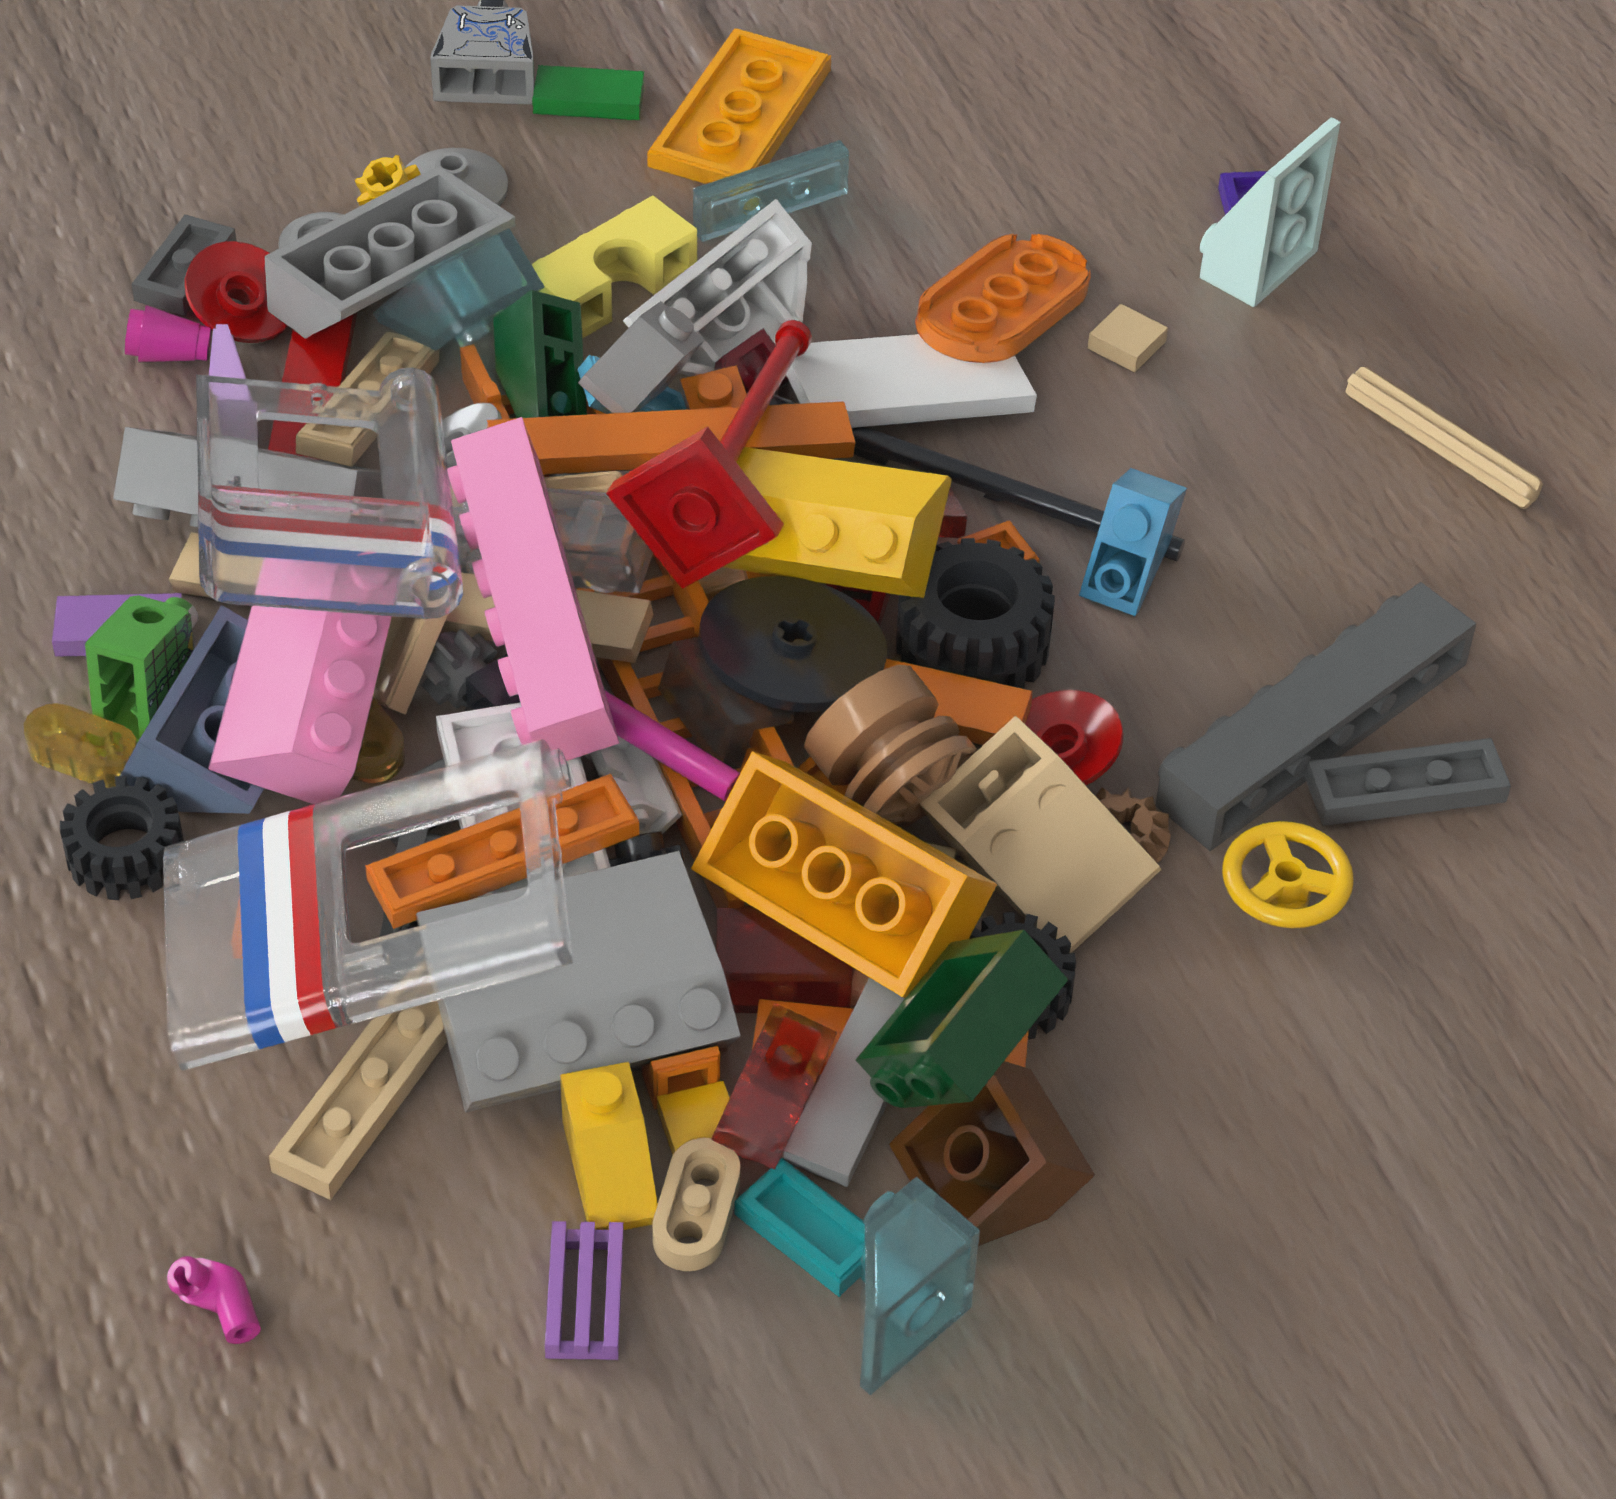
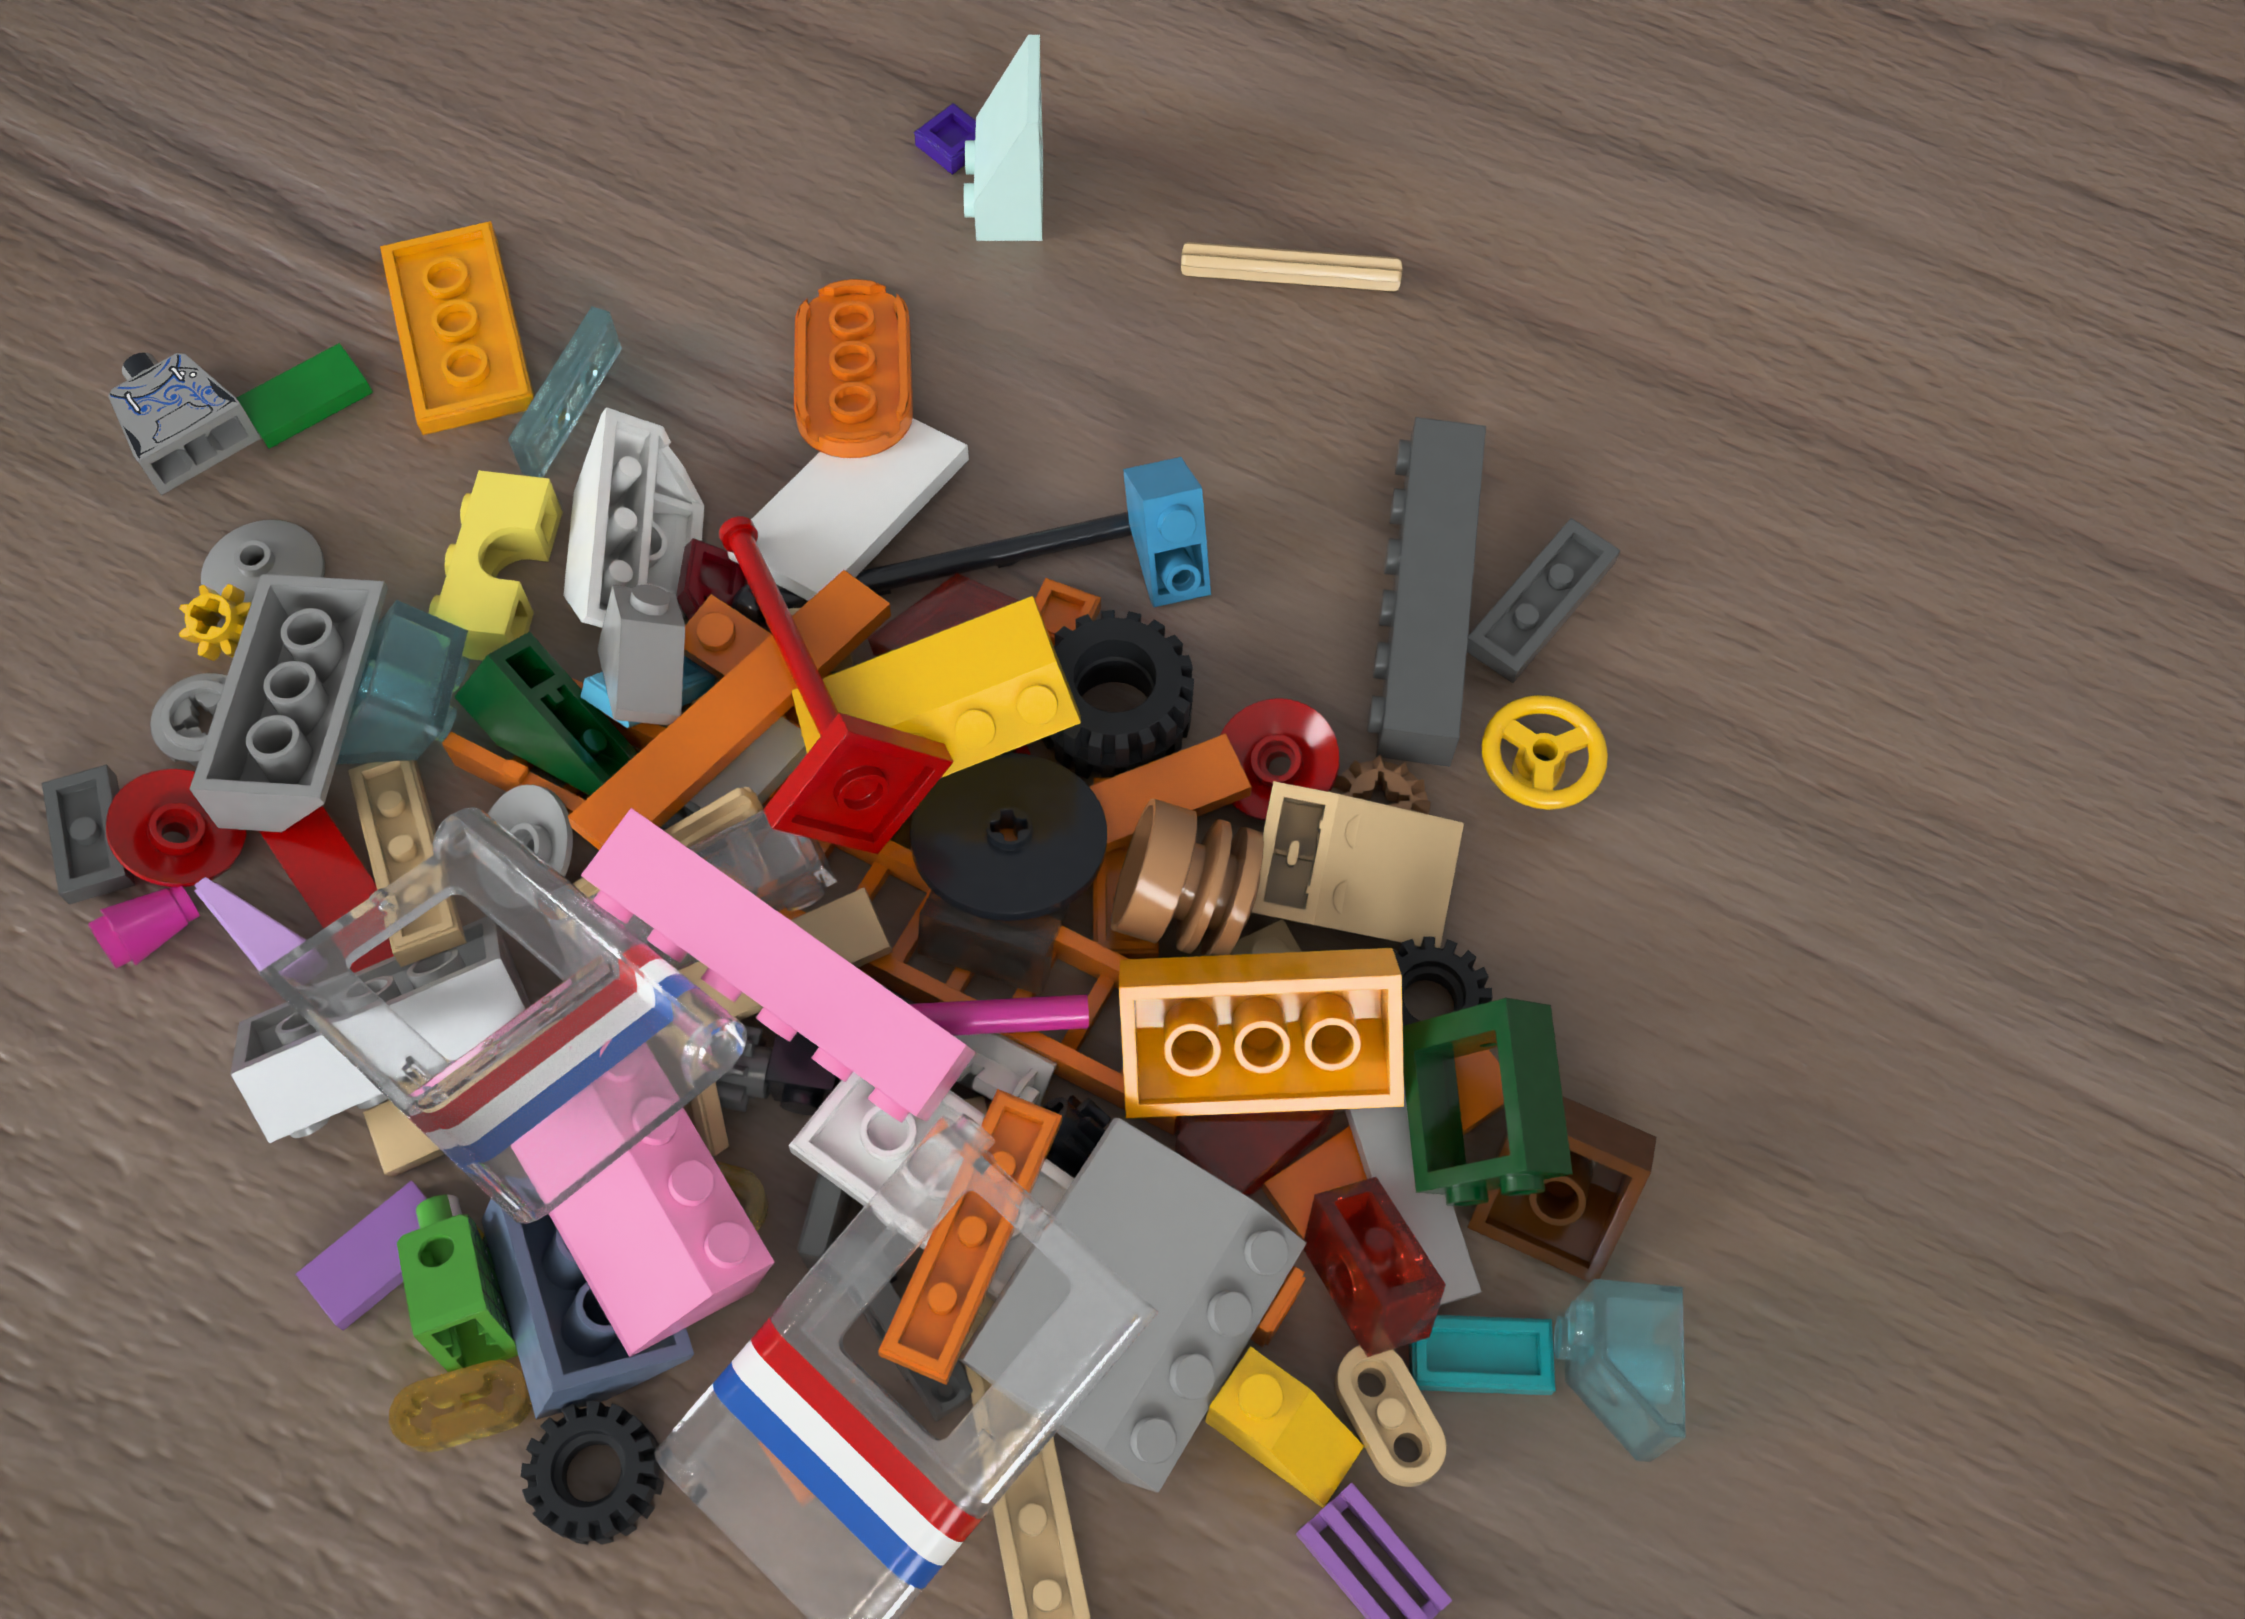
camera: 40 degrees left, 15 degrees up
(692, 1113) = (1314, 1335): yellow tile -> none
(1127, 337) = (978, 337): tan tile -> none

